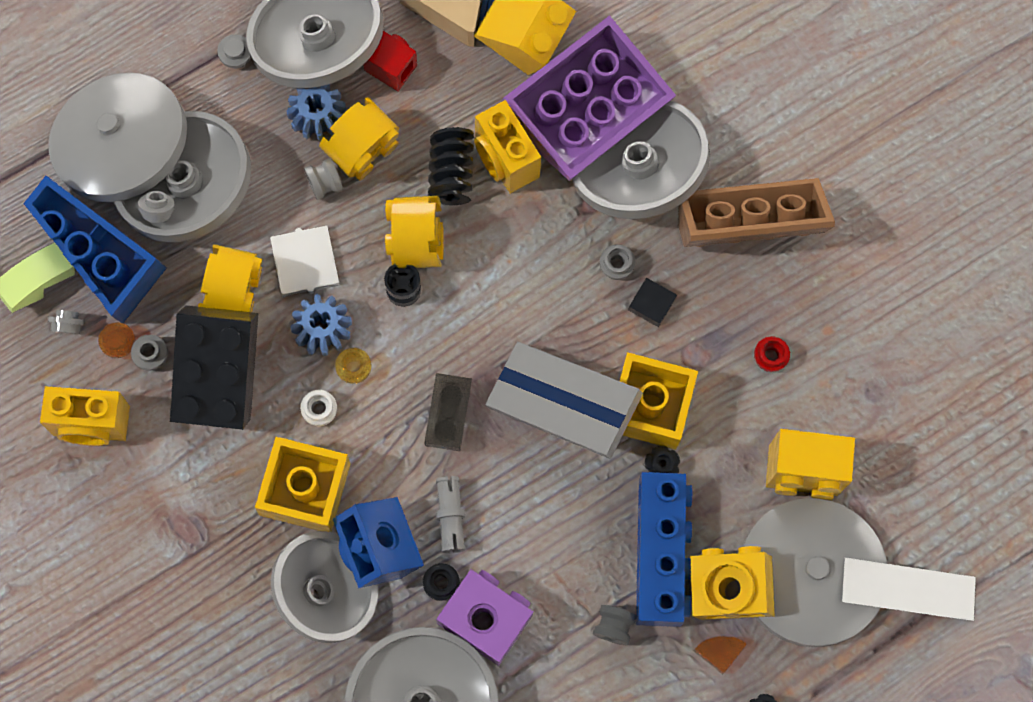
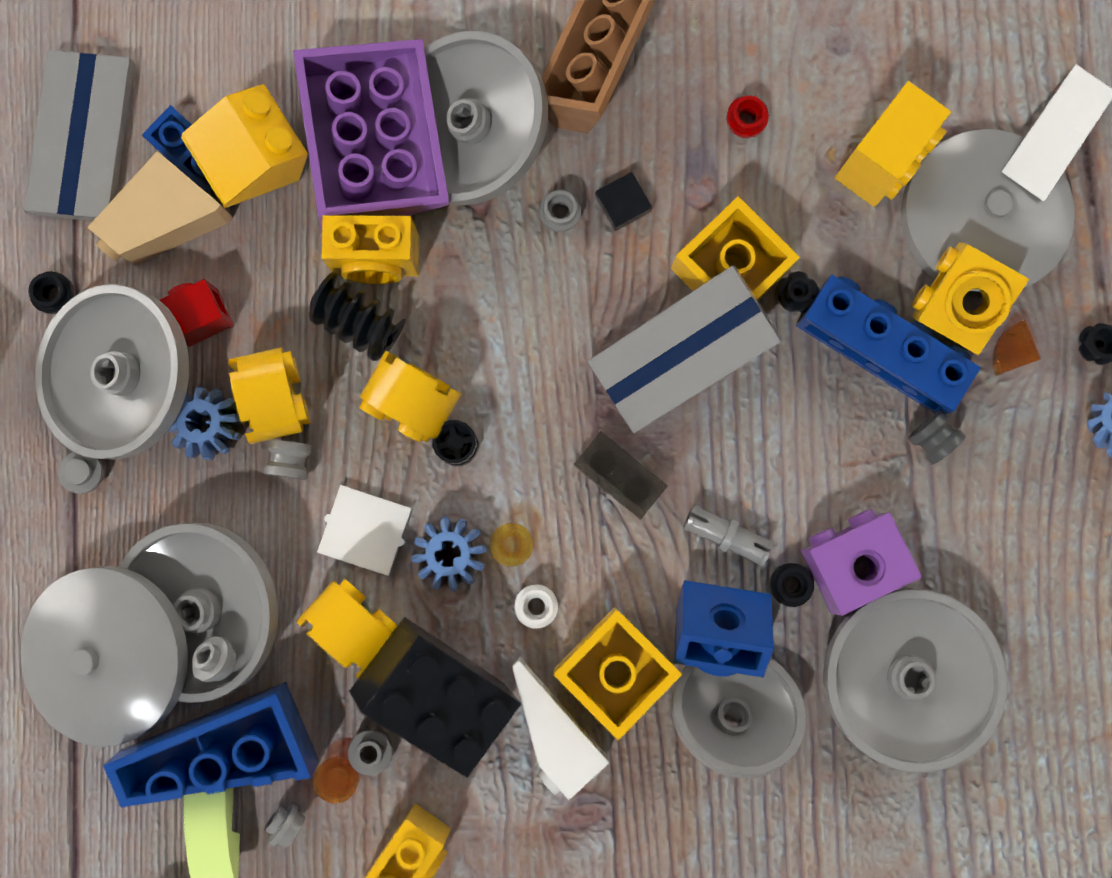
camera: 55 degrees left, 10 degrees up
(232, 473) = (561, 744): none -> white slope

